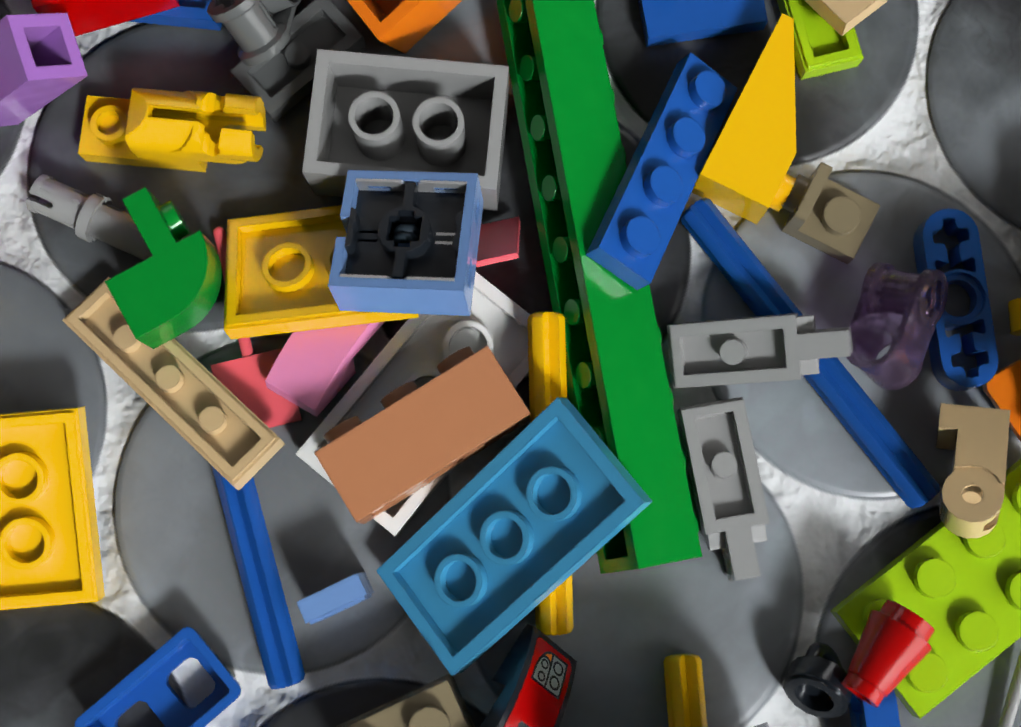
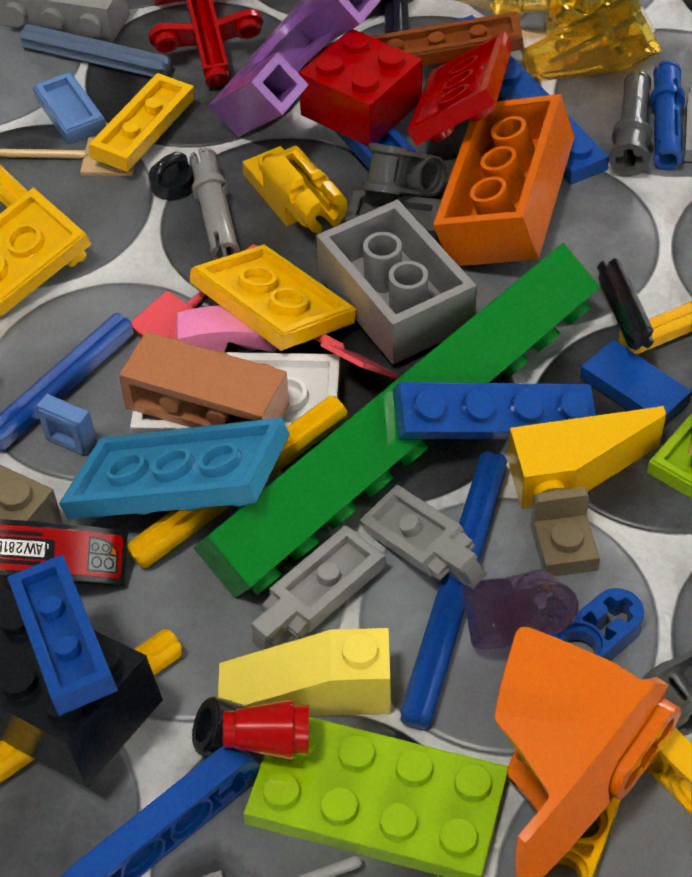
camera: 55 degrees right, 30 degrees down
(34, 245) = (171, 177): none -> black tile
(173, 285) = (197, 226): green brick -> none
(178, 390) = (139, 276): tan tile -> none
(407, 242) = (317, 300): piece -> none
(824, 564) = (328, 671): none -> light yellow slope
(976, 486) = (452, 718): tan leg -> none

